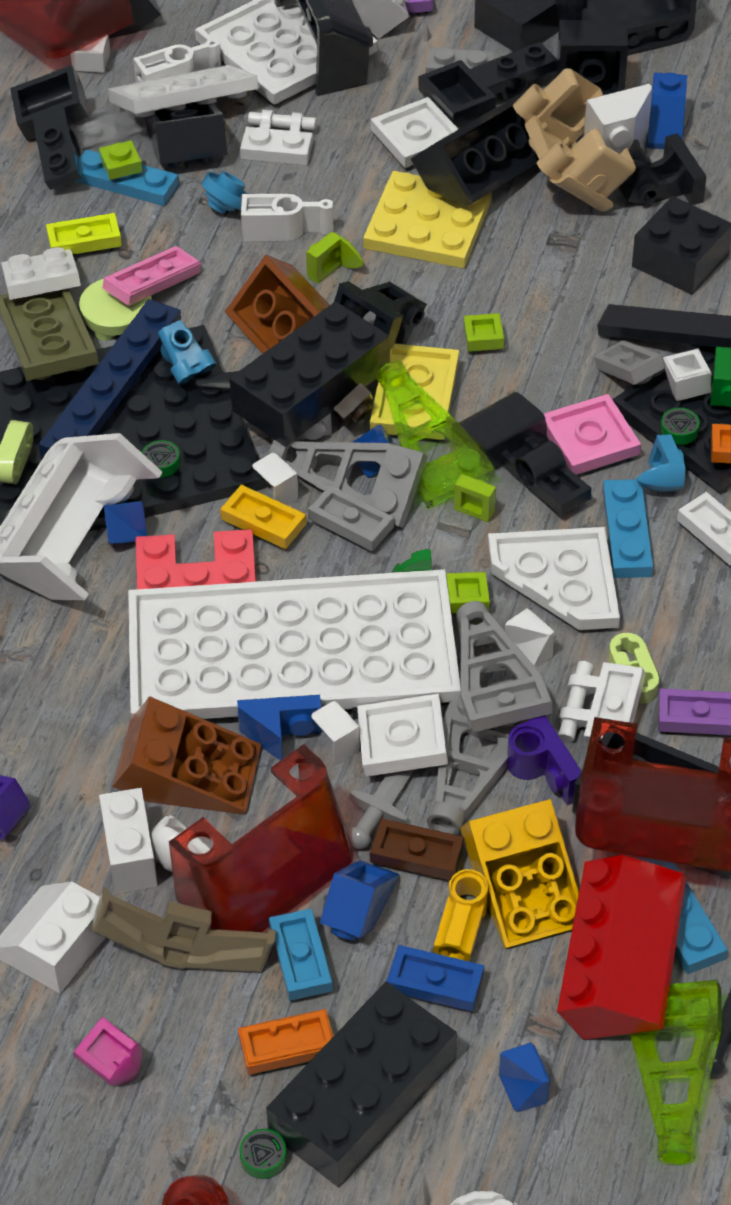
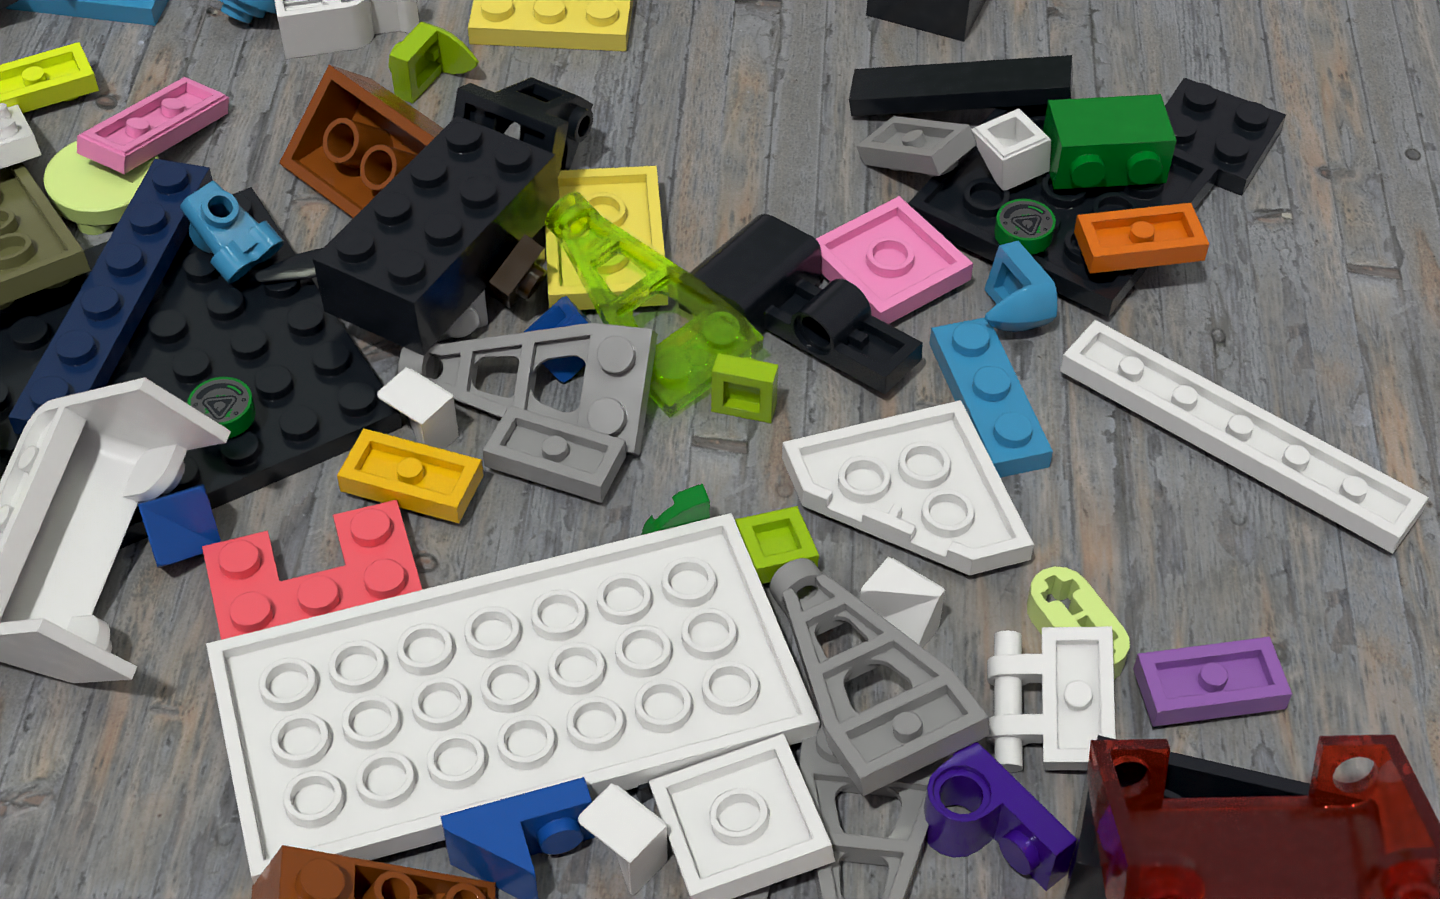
camera: 15 degrees left, 0 degrees up
(483, 332) = (684, 135): lime plate -> none

